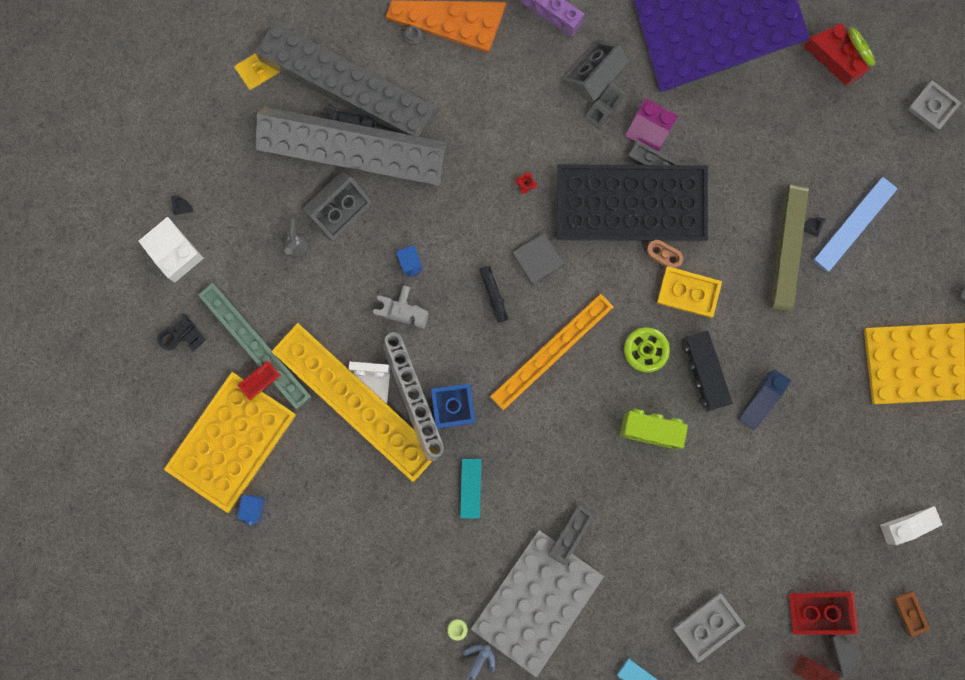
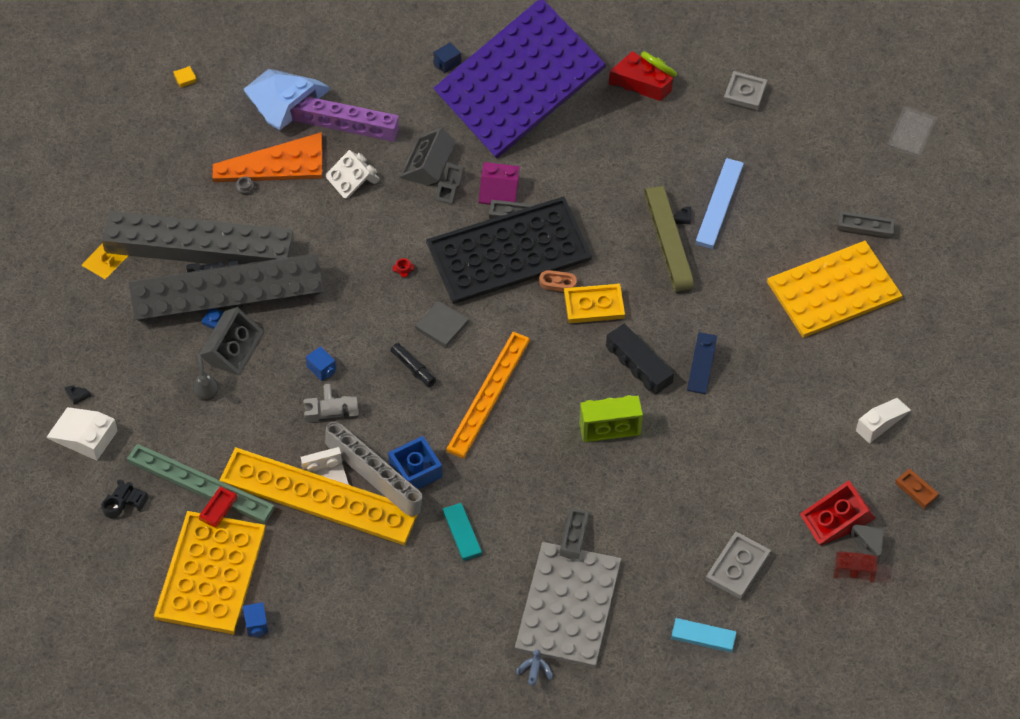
camera: 20 degrees left, 25 degrees down
(330, 171) = (212, 318): none -> blue plate
(457, 629) = (501, 654): yellowish green tile -> none
(517, 60) = (350, 173): none -> white bracket
(639, 364) = (568, 350): lime plate -> none

